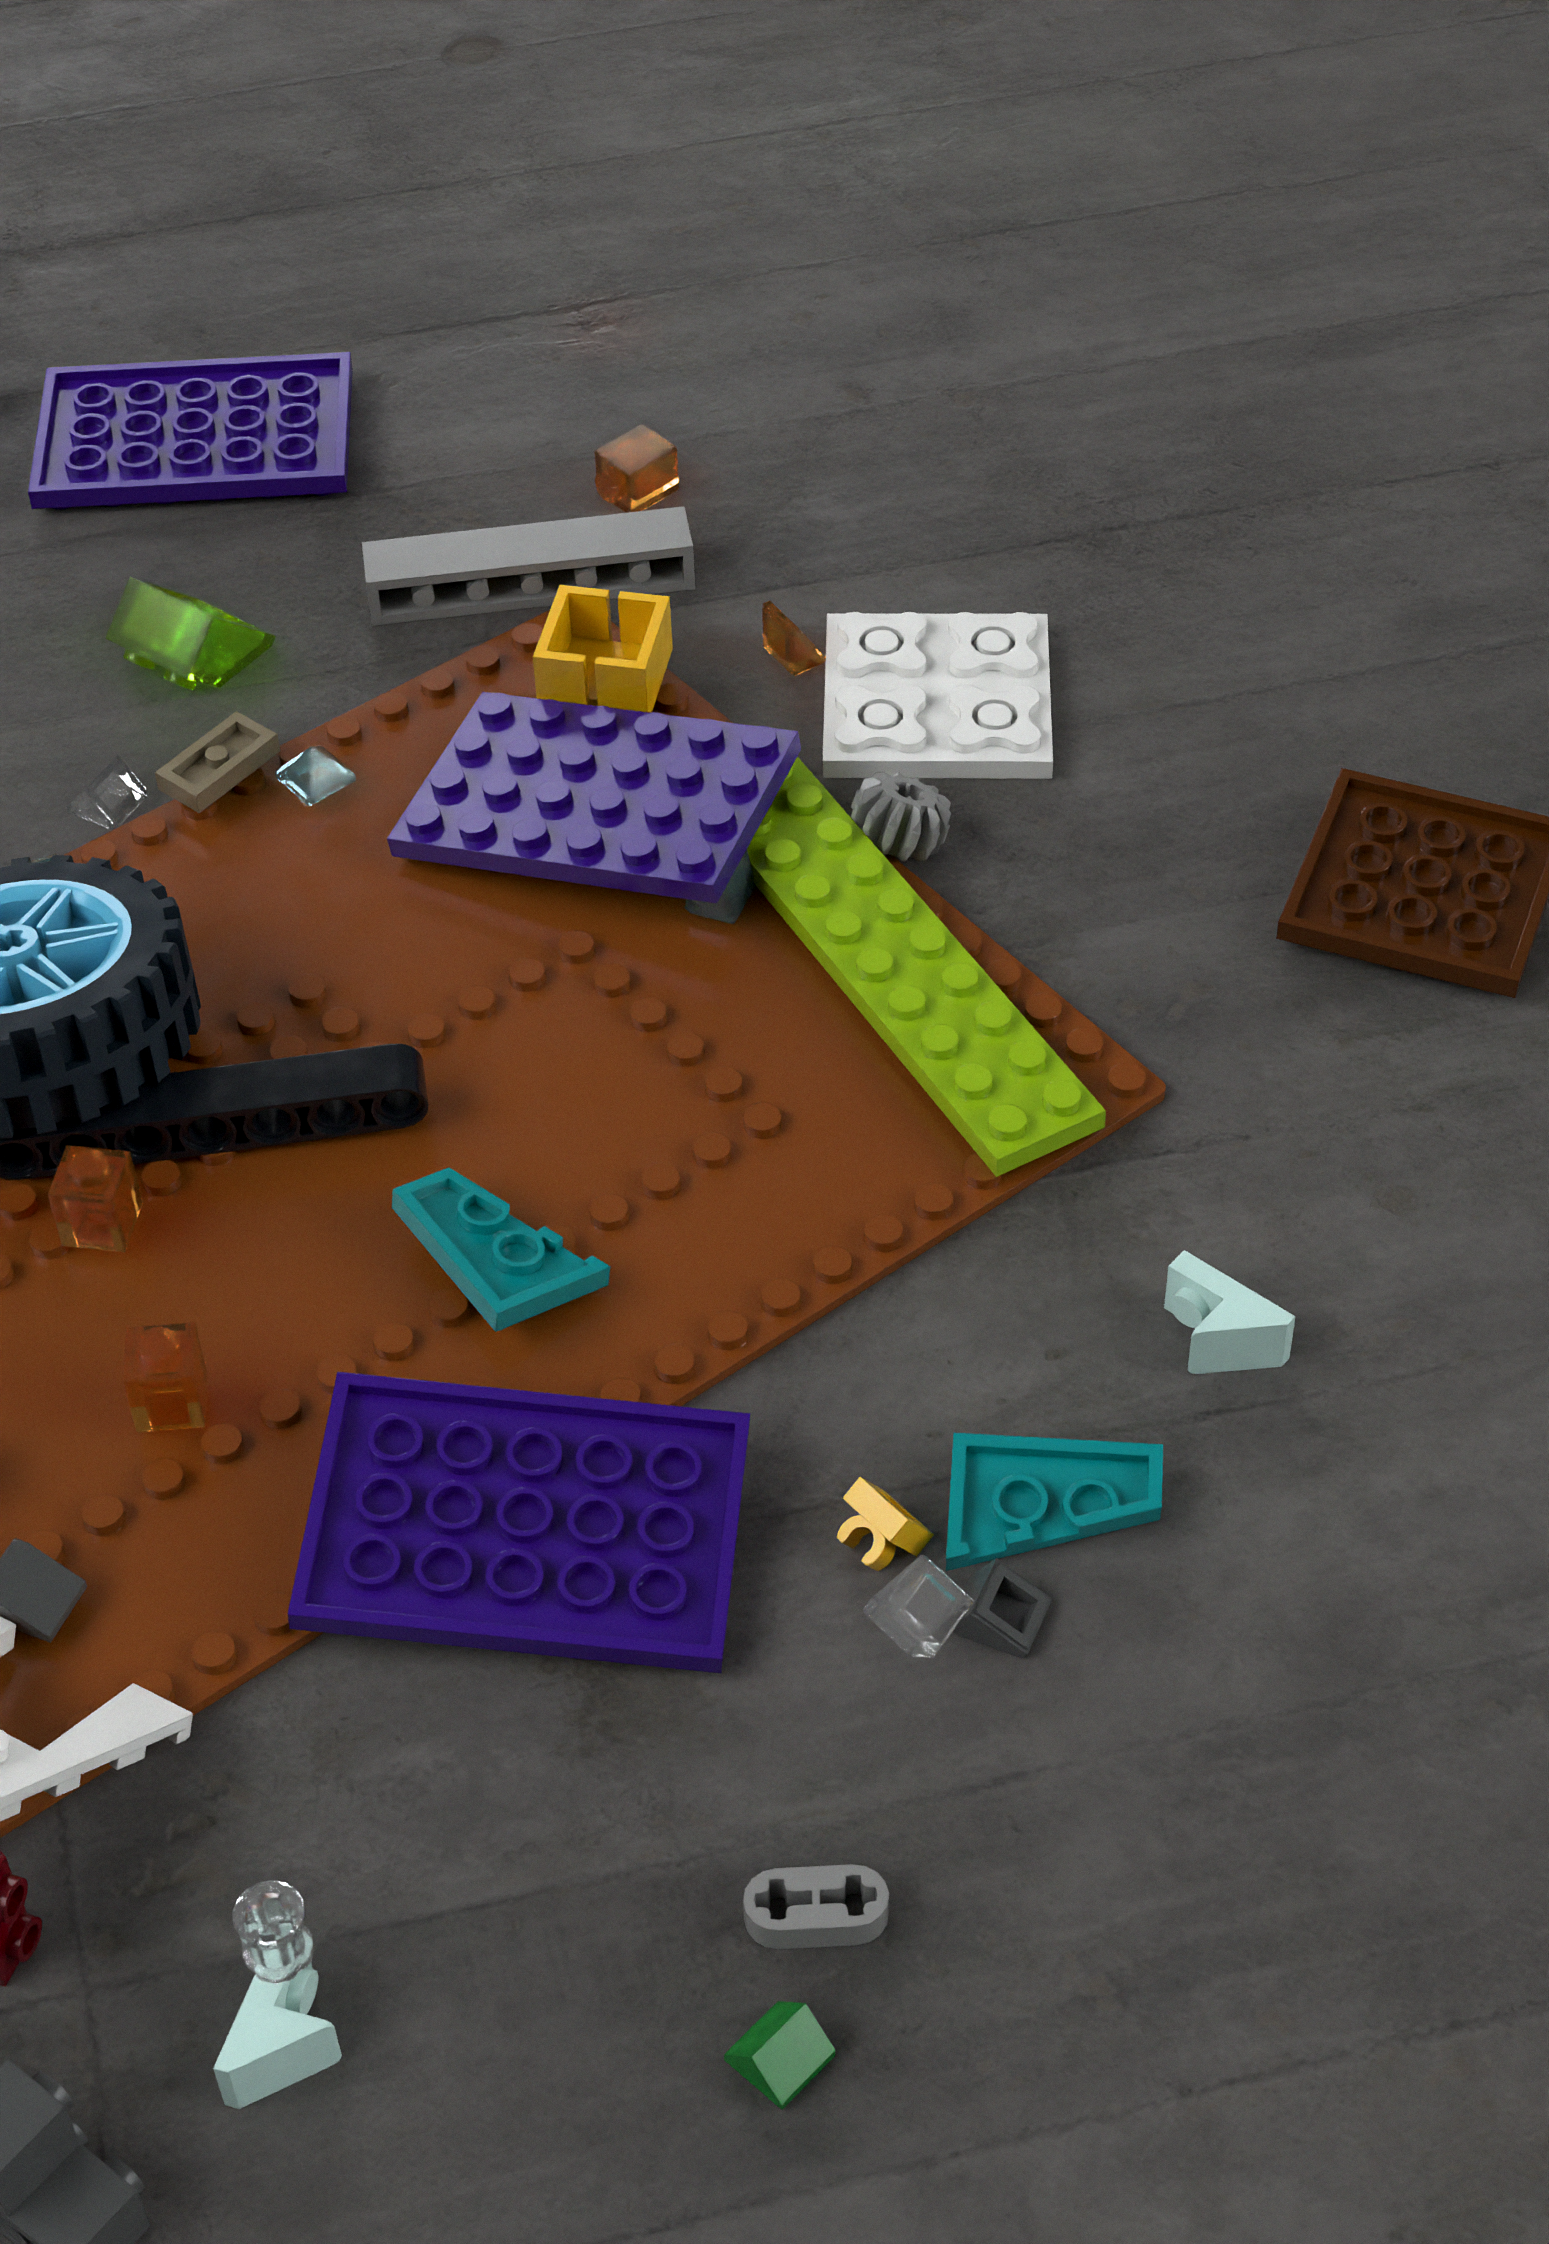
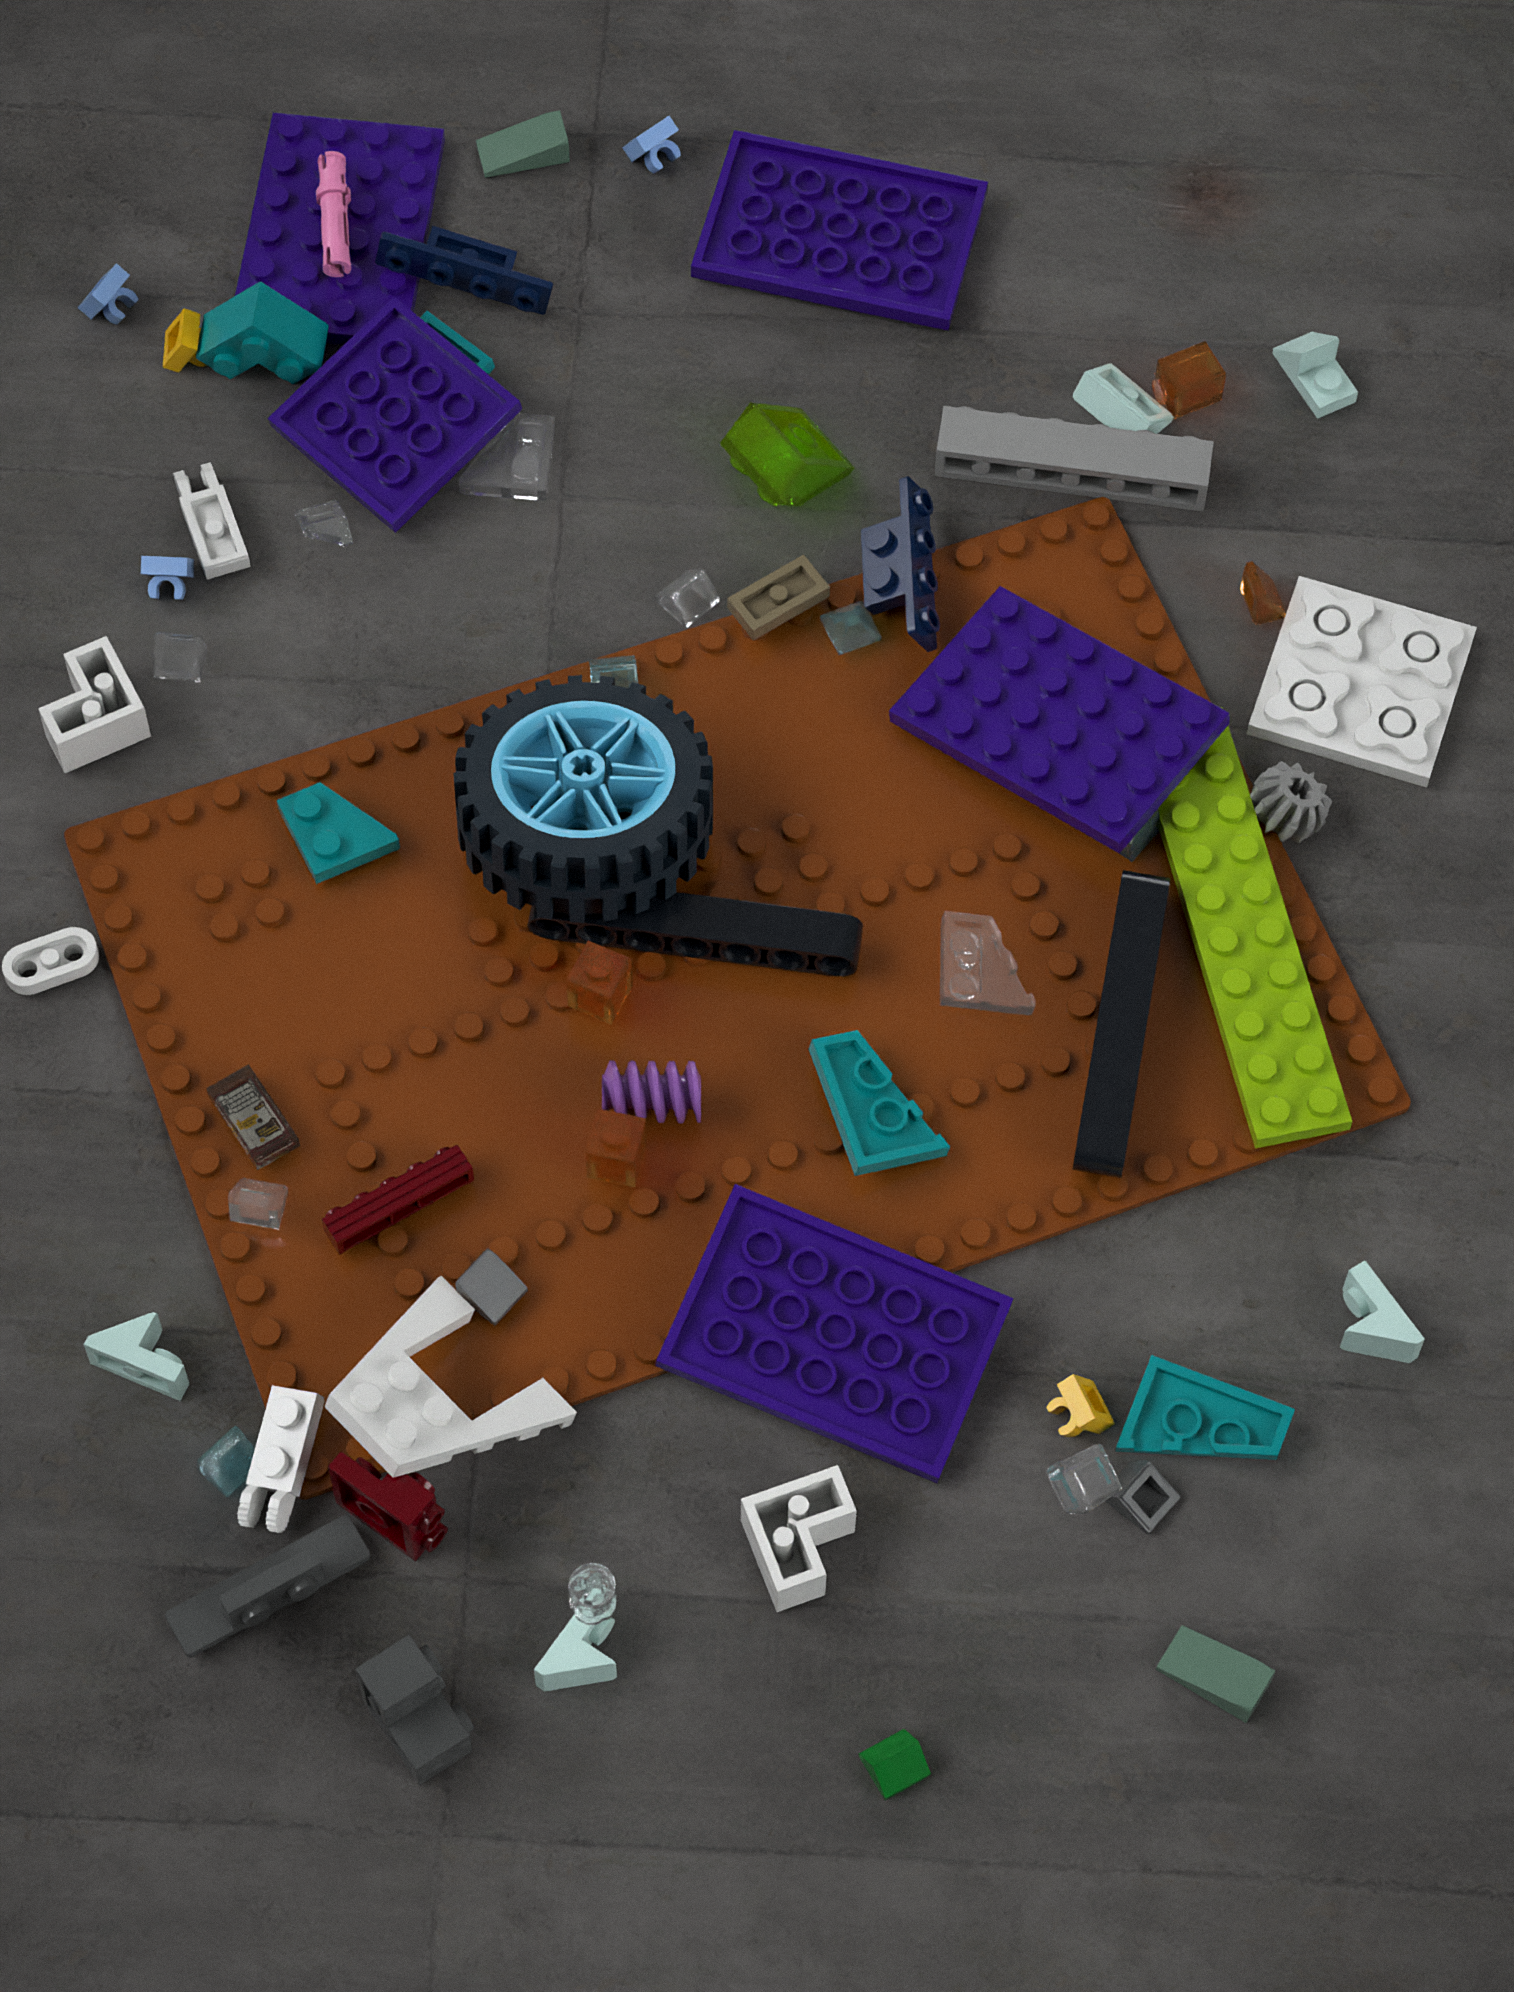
camera: 15 degrees right, 15 degrees up
(201, 1297) = (652, 1090): none -> medium lavender piece
(355, 698) = (900, 565): none -> dark blue bracket
(535, 1776) = (787, 1526): none -> white brick
(548, 502) = (1119, 401): none -> light aqua slope
(582, 662) = (1096, 591): yellow piece -> none
(582, 1068) = (978, 968): none -> clear wing
(775, 439) = (1316, 373): none -> light aqua slope
(783, 1086) = (1121, 1024): none -> black beam
(816, 1906) = (944, 1683): light grey beam -> none
(1184, 1799) = (1216, 1672): none -> sand green slope

